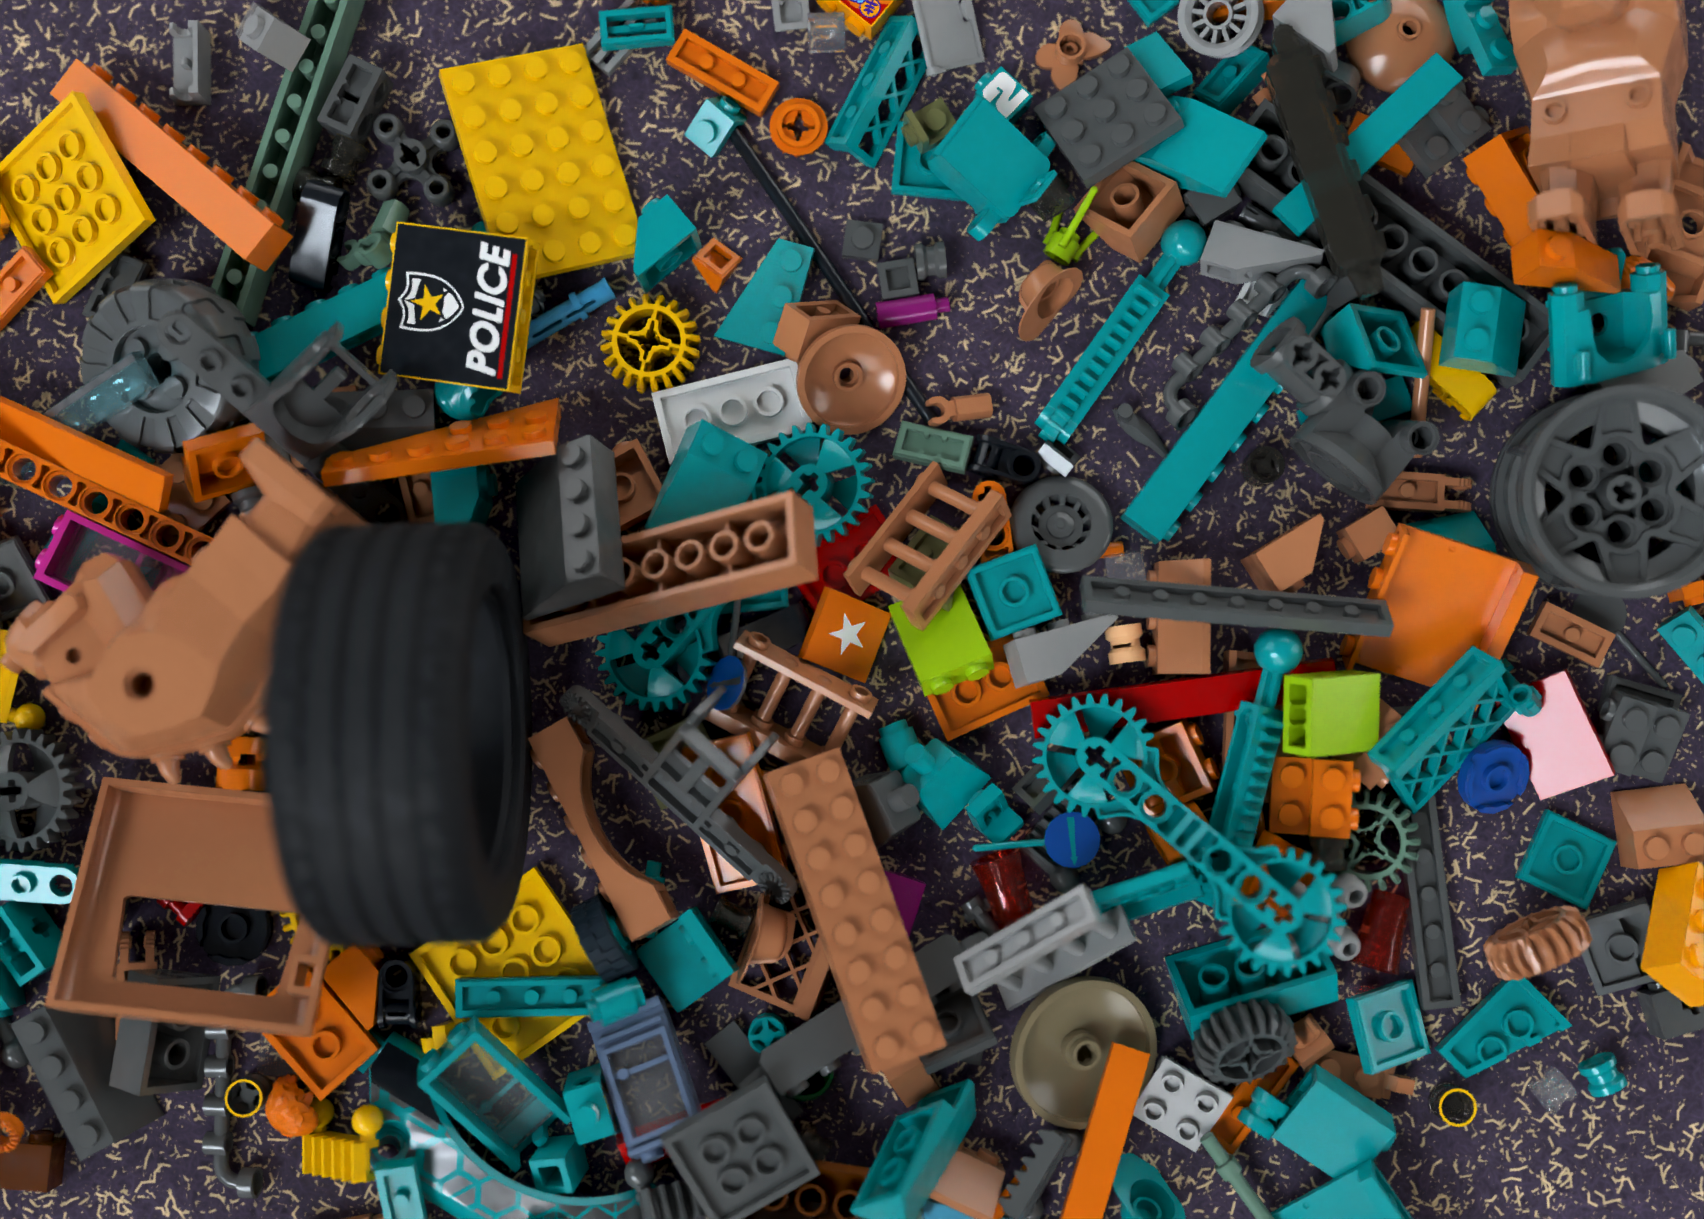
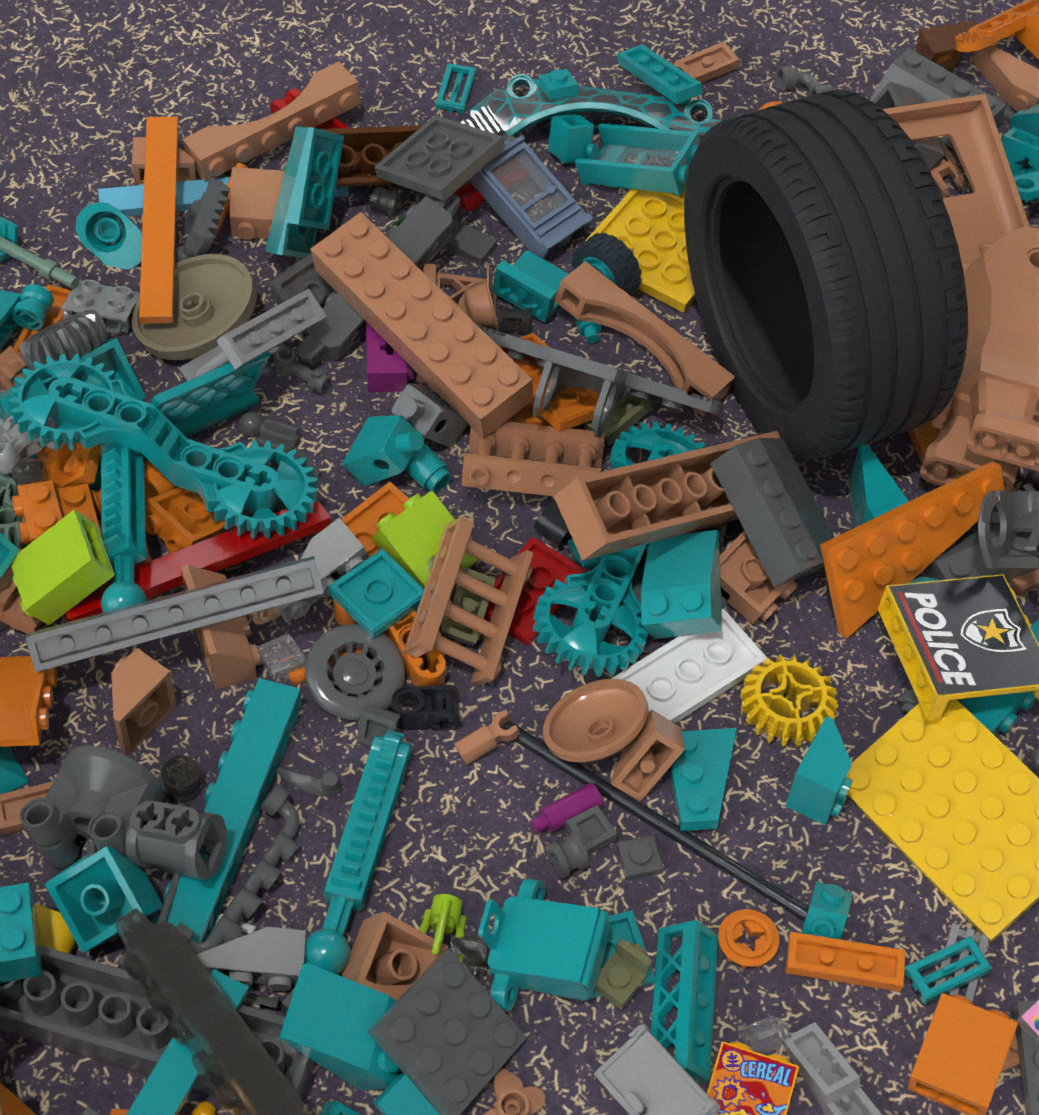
camera: 155 degrees right, 30 degrees down
(338, 1153) = (728, 99): yellow gear -> none
(524, 995) = (641, 225): teal tile -> none
(569, 311) = (871, 710): dark azure pin -> none
(590, 1105) = (569, 169): teal torso -> none
(615, 1000) = (578, 228): teal brick -> none
(715, 267) = (766, 791): orange slope -> none
(729, 670) = (593, 450): blue piece -> none
(767, 1036) = (457, 253): teal wheel -> none
(844, 635) = (512, 525): orange tile -> none
(926, 444) = (487, 699): sand green plate -> none
(992, 815) = (328, 443): teal bracket -> none
(1004, 94) = (562, 1030): brick -> none
(1004, 885) = (301, 398): clear red plant -> none
(1044, 295) = (448, 859): nougat piece -> none
(1067, 839) = (263, 430): blue piece -> none
(1365, 535) = (54, 747): nougat brick -> none
(1425, 347) = (50, 910): nougat bar -> none

